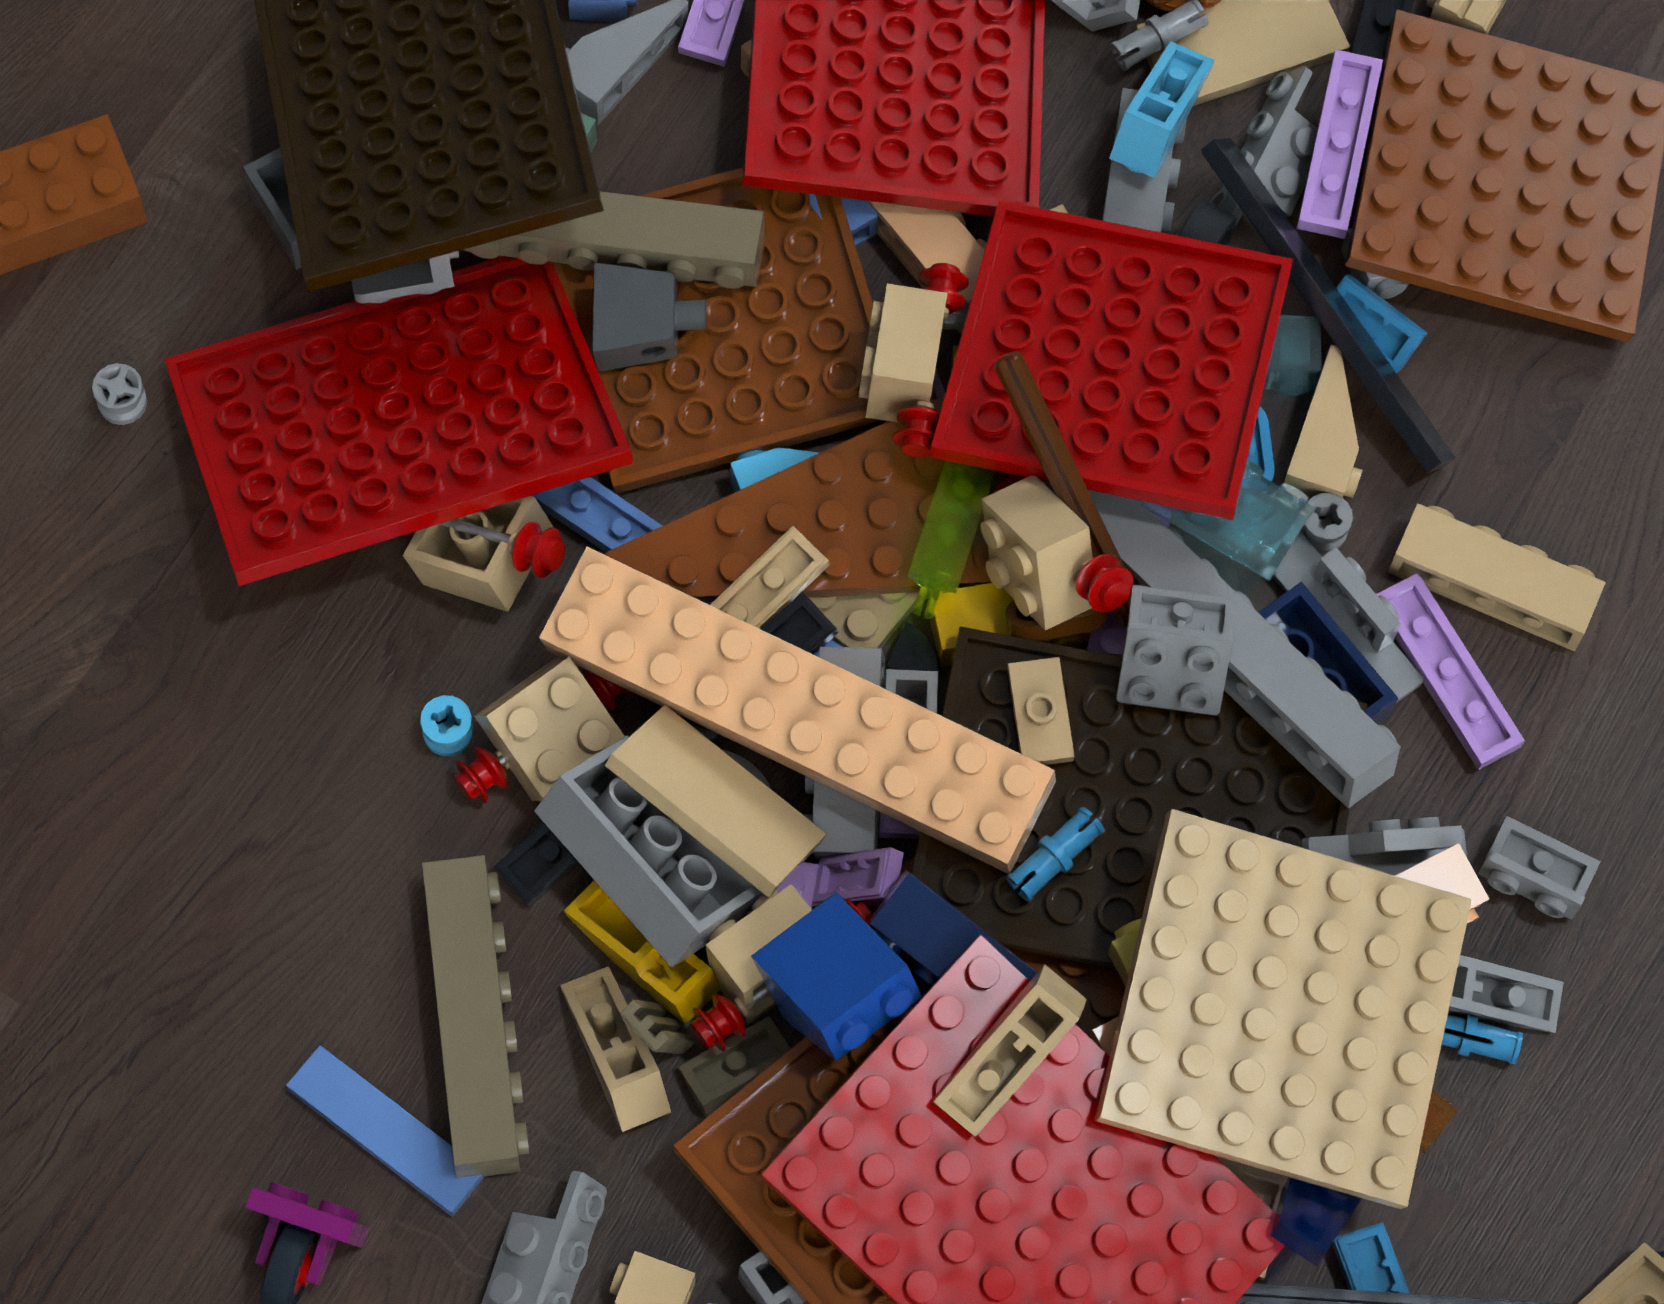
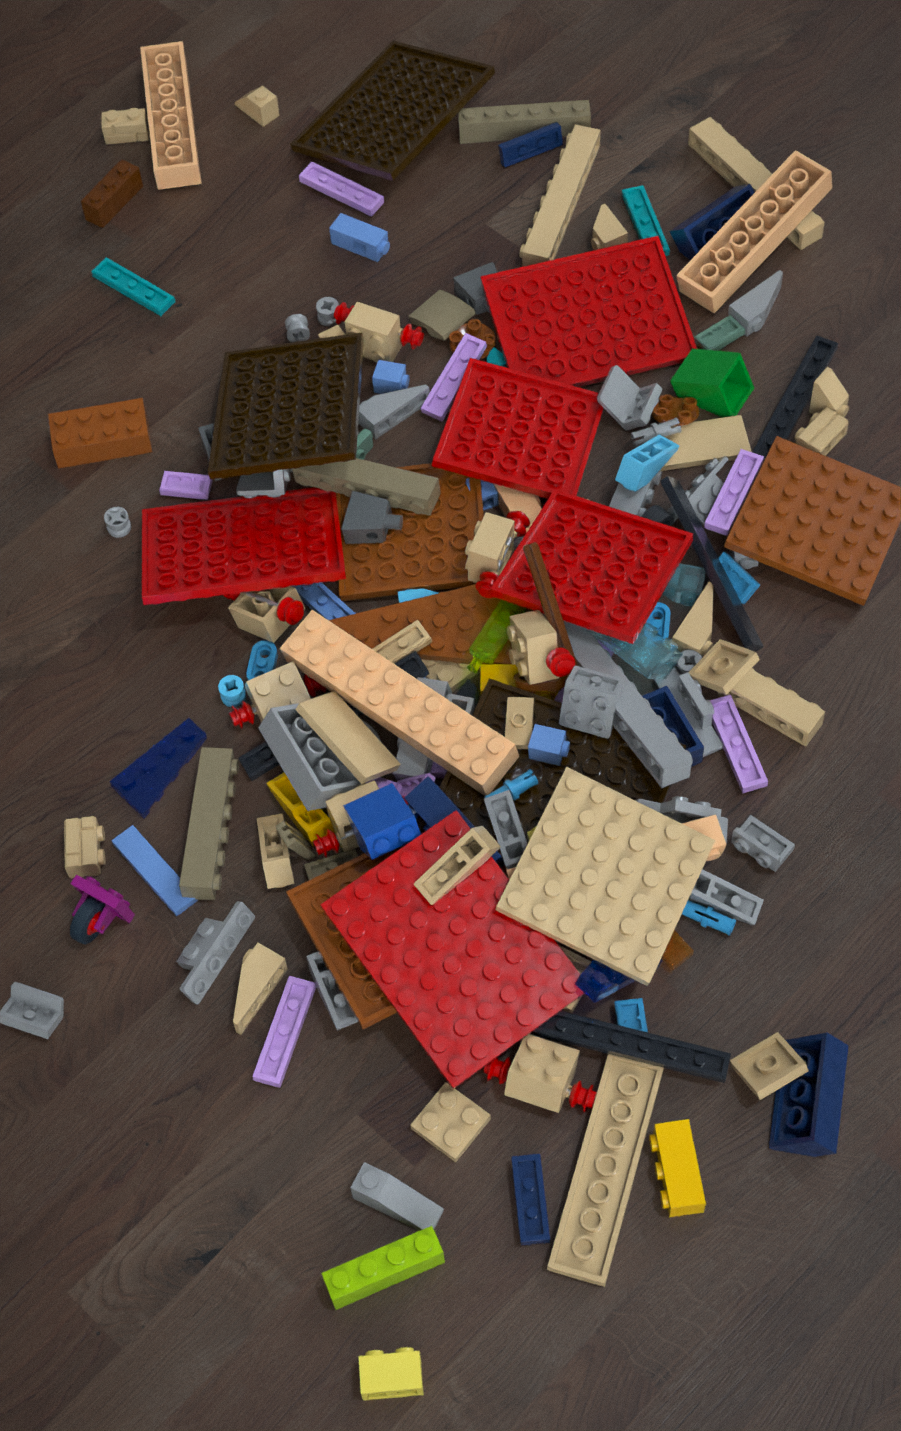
camera: 20 degrees right, 10 degrees down
(234, 1110) = (82, 846): none -> tan brick
(239, 289) = (185, 485): none -> lavender plate
(329, 926) = (152, 772): none -> clear blue wing
(491, 661) = (259, 665): none -> dark azure plate
(1073, 942) = (506, 827): none -> light grey slope
(1109, 751) = (548, 745): none -> medium blue brick
(1400, 524) = (723, 666): none -> tan plate

